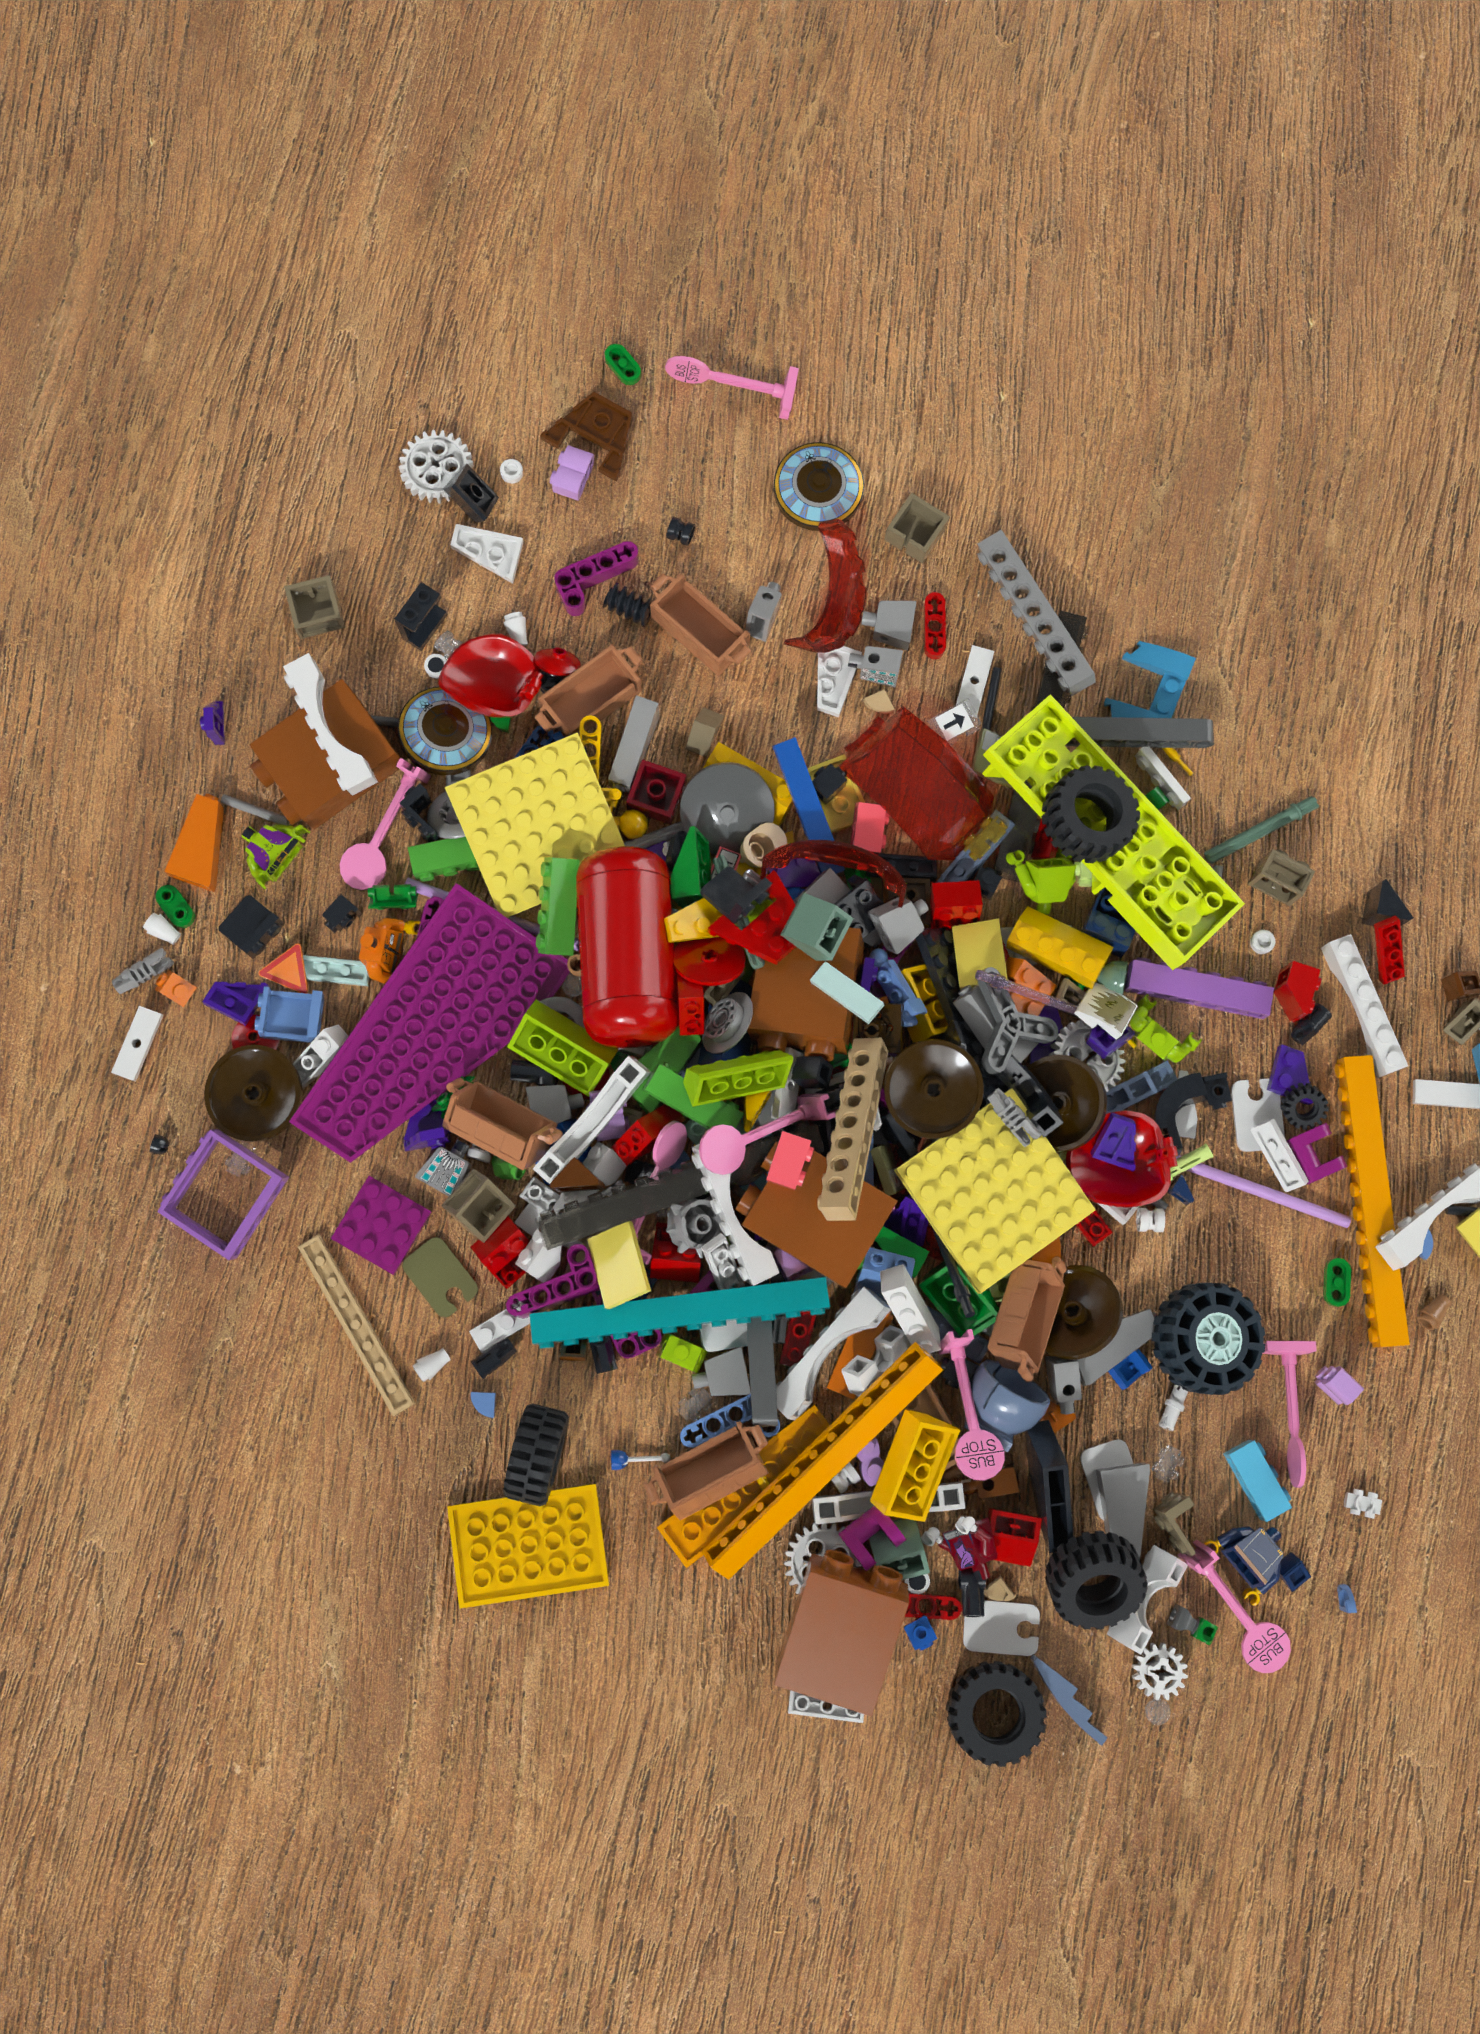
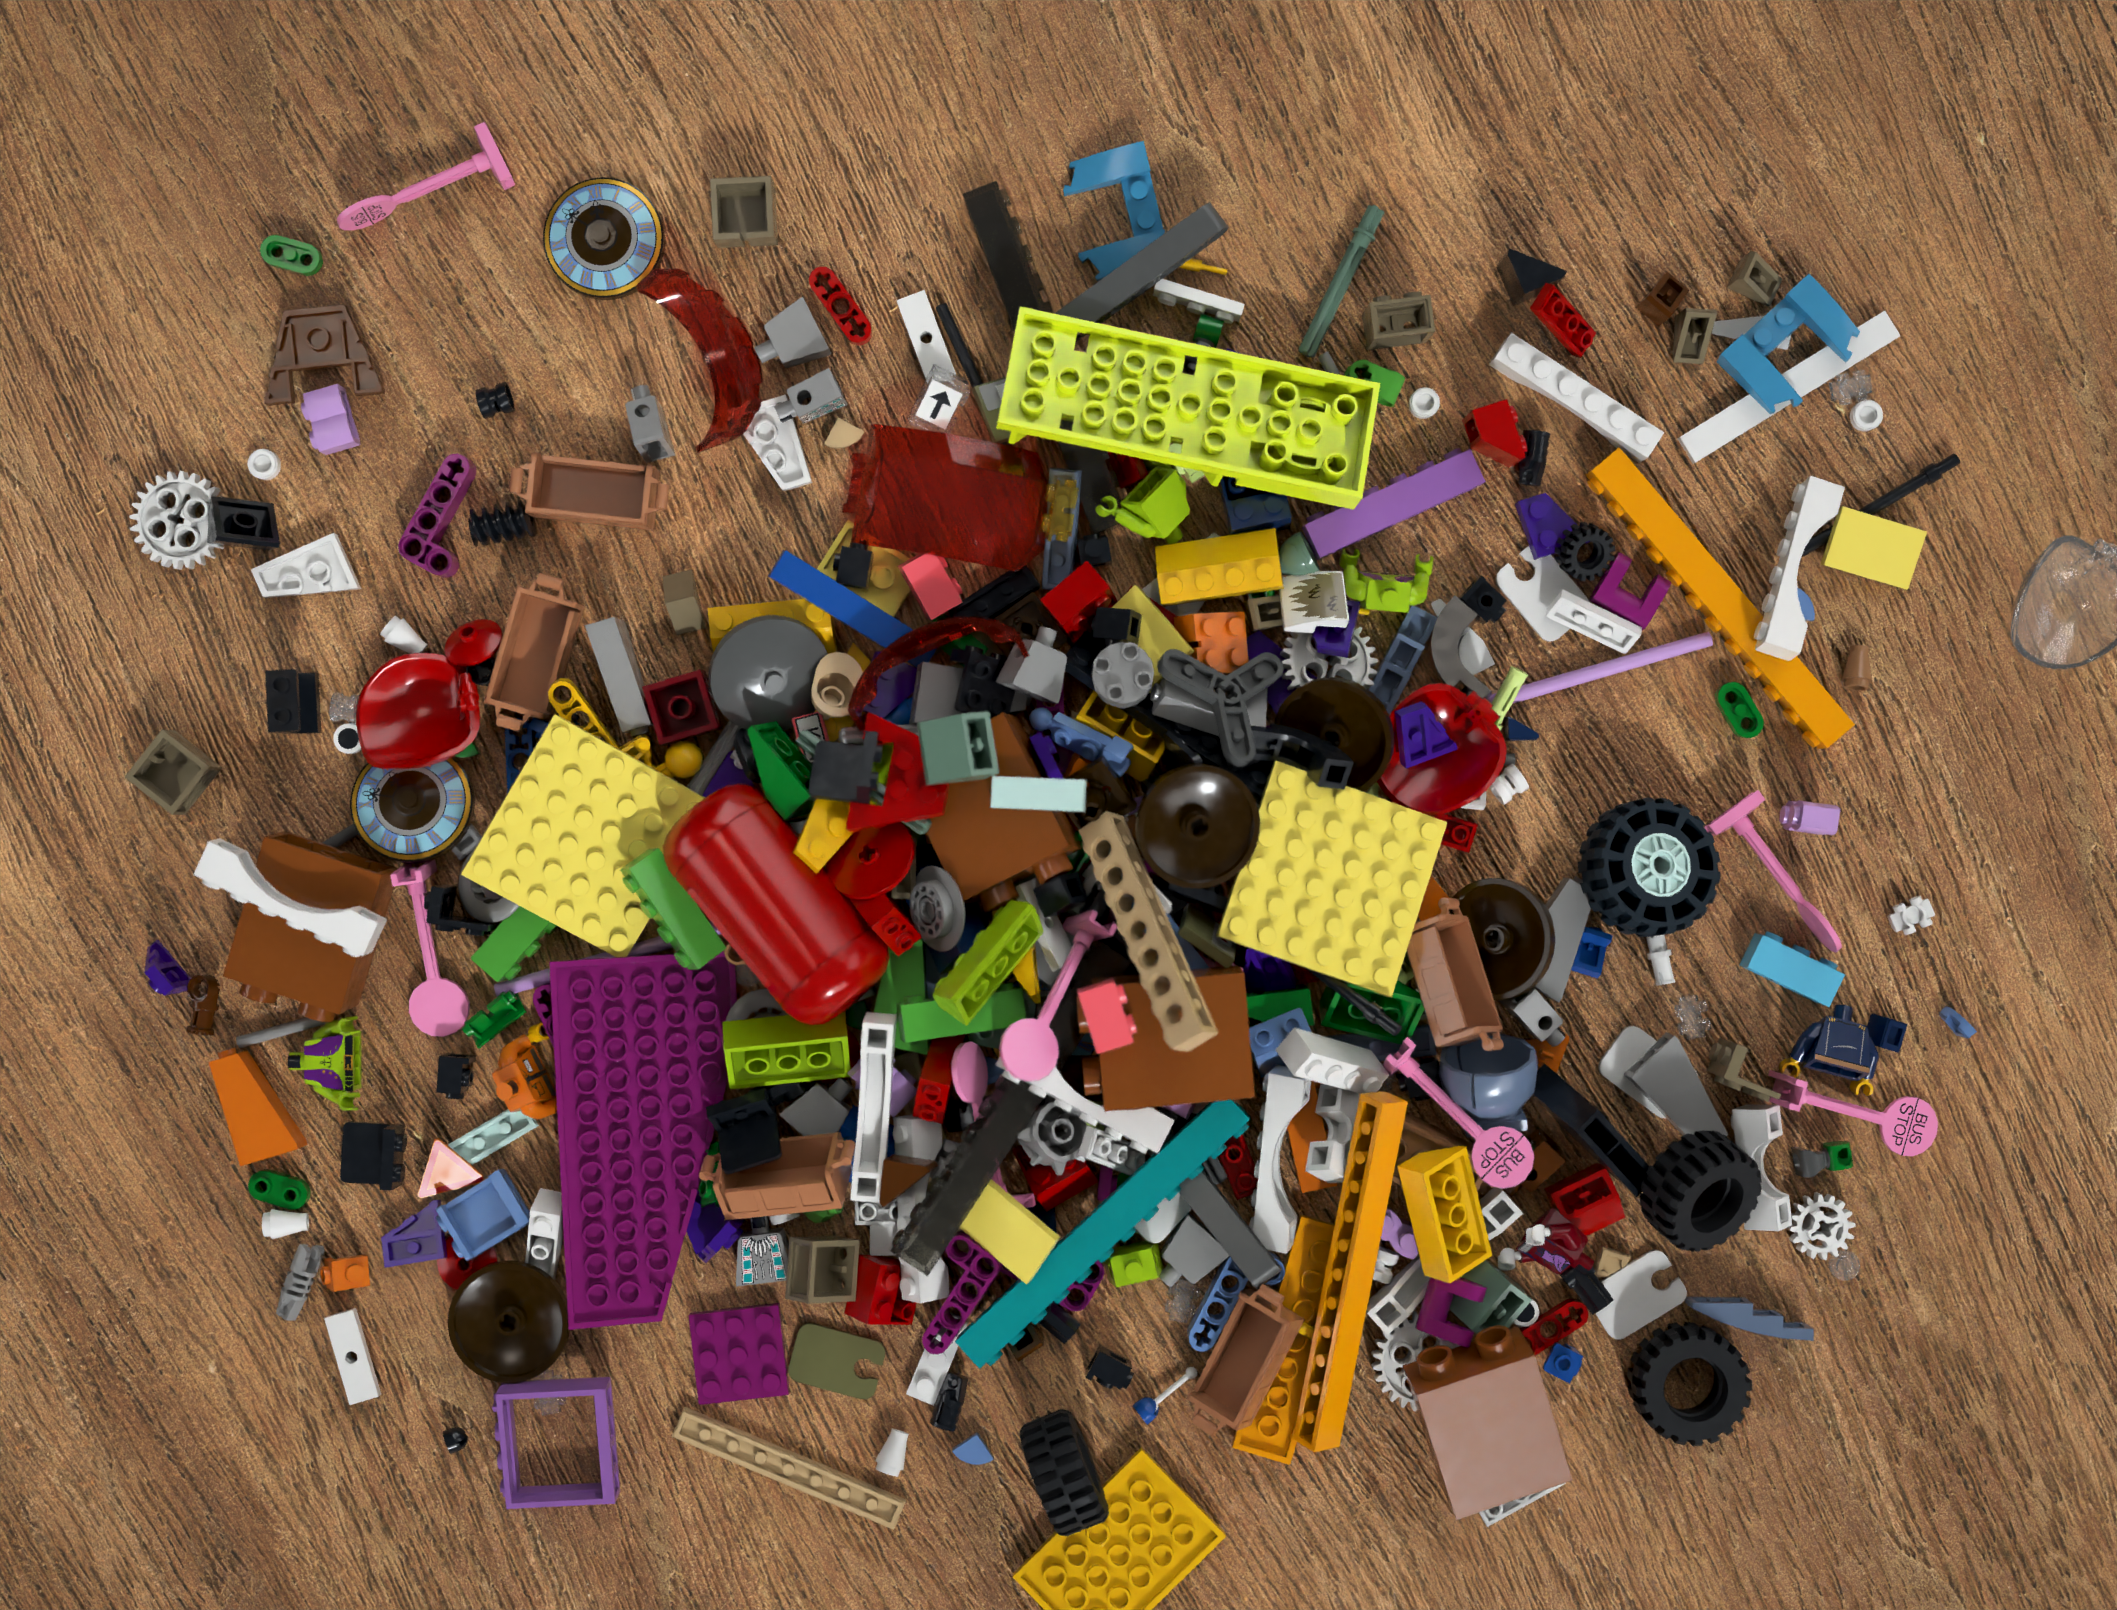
camera: 30 degrees left, 10 degrees up
(220, 758) = (203, 1006): none -> reddish brown connector
(498, 1078) = (746, 1131): none -> black bracket
(614, 1414) = (1109, 1369): none -> black brick
(952, 963) = (1122, 675): none -> light grey brick
(969, 933) = (1116, 625): none -> black brick
(998, 547) = (845, 169): light grey brick -> none
(999, 982) = (1186, 662): bar -> none
(1013, 1117) = (1299, 794): light grey hinge -> none
(1110, 795) = (1165, 378): black tyre -> none
(1249, 911) = (1389, 380): none -> bright green piece

